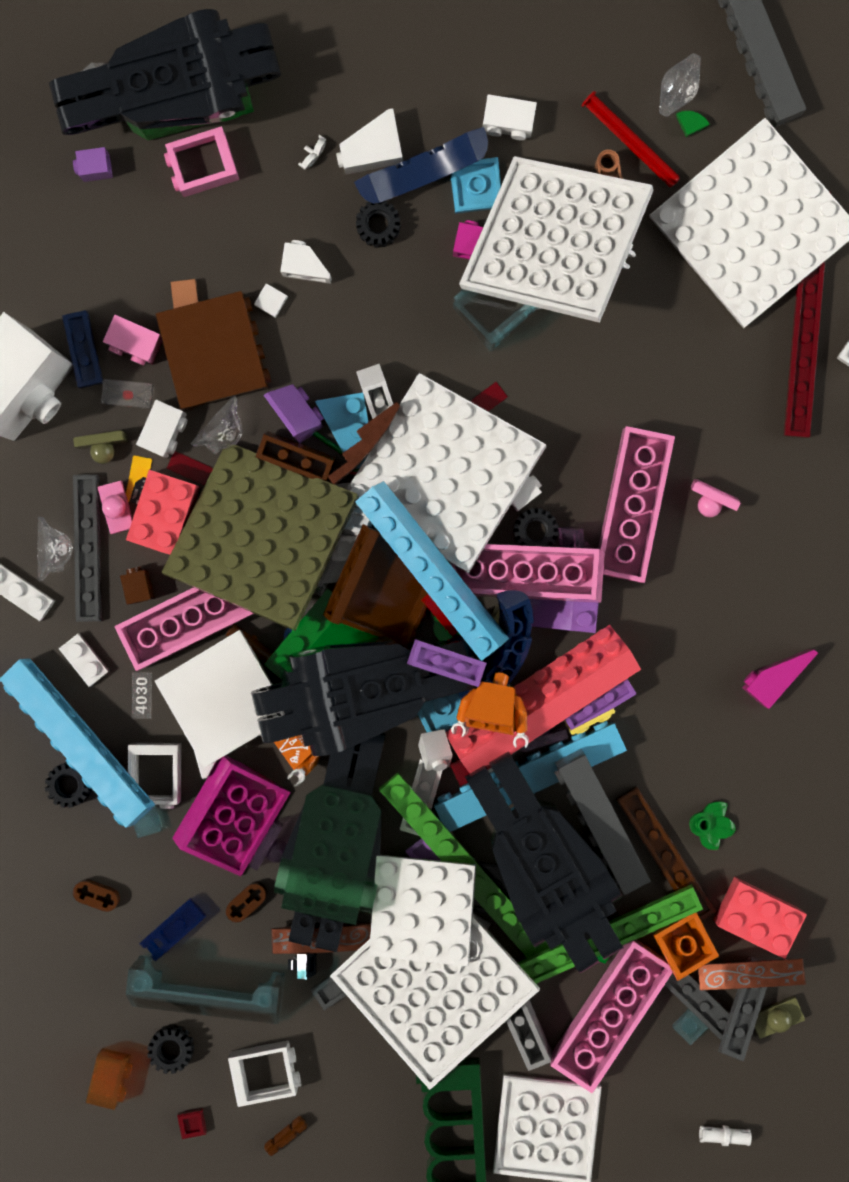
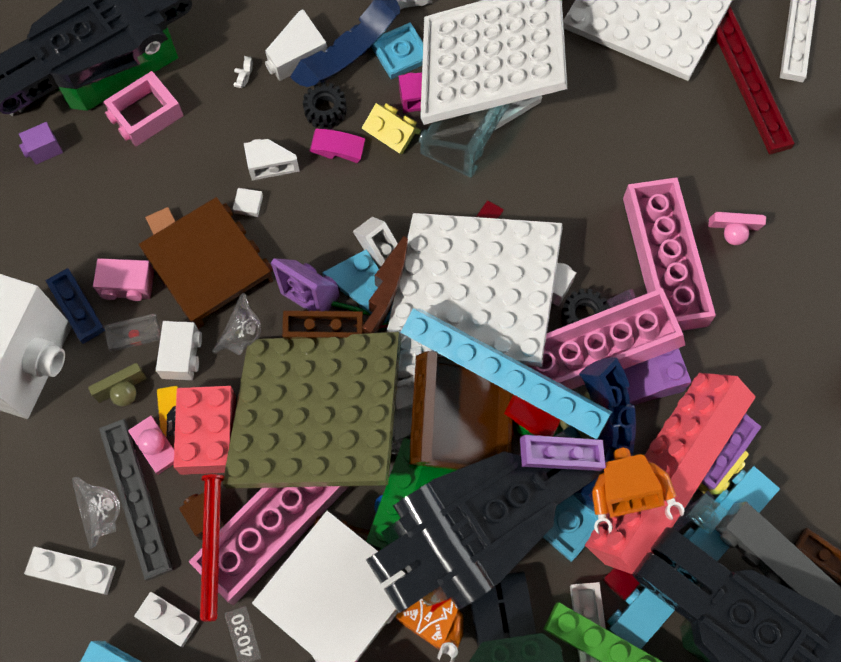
camera: 25 degrees left, 20 degrees down
(135, 622) = (210, 547): none -> red axle
(189, 468) = (218, 378): dark red sticker -> none
(375, 271) = (337, 143): none -> dark pink slope
(433, 271) = (390, 128): none -> light yellow bracket
(435, 750) = (583, 567): white brick -> none
(553, 749) = (707, 513): none -> clear light blue plate

